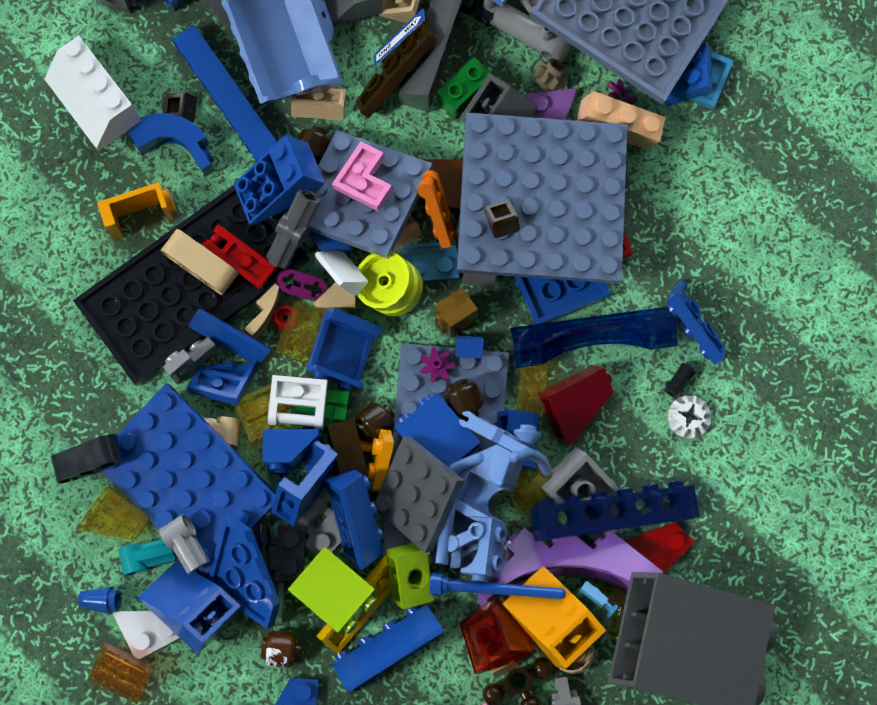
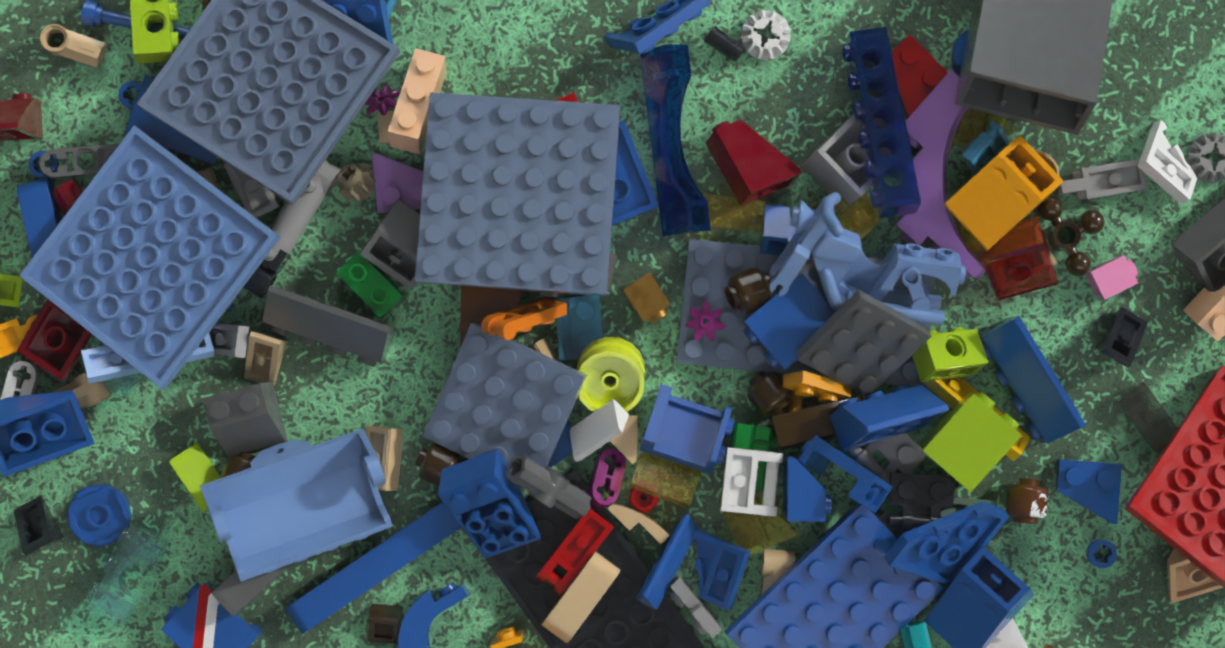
camera: 90 degrees left, 10 degrees up
(180, 537) = (904, 614): light grey piece -> none
(358, 181) = (494, 410): bright pink plate -> none
(395, 68) = (345, 363): dark brown wing -> none
(399, 37) = (308, 361): sticker -> none
(442, 584) = (965, 318): blue piece -> none
(469, 346) = (681, 283): blue slope -> none
(502, 218) = (547, 241): dark brown slope -> none

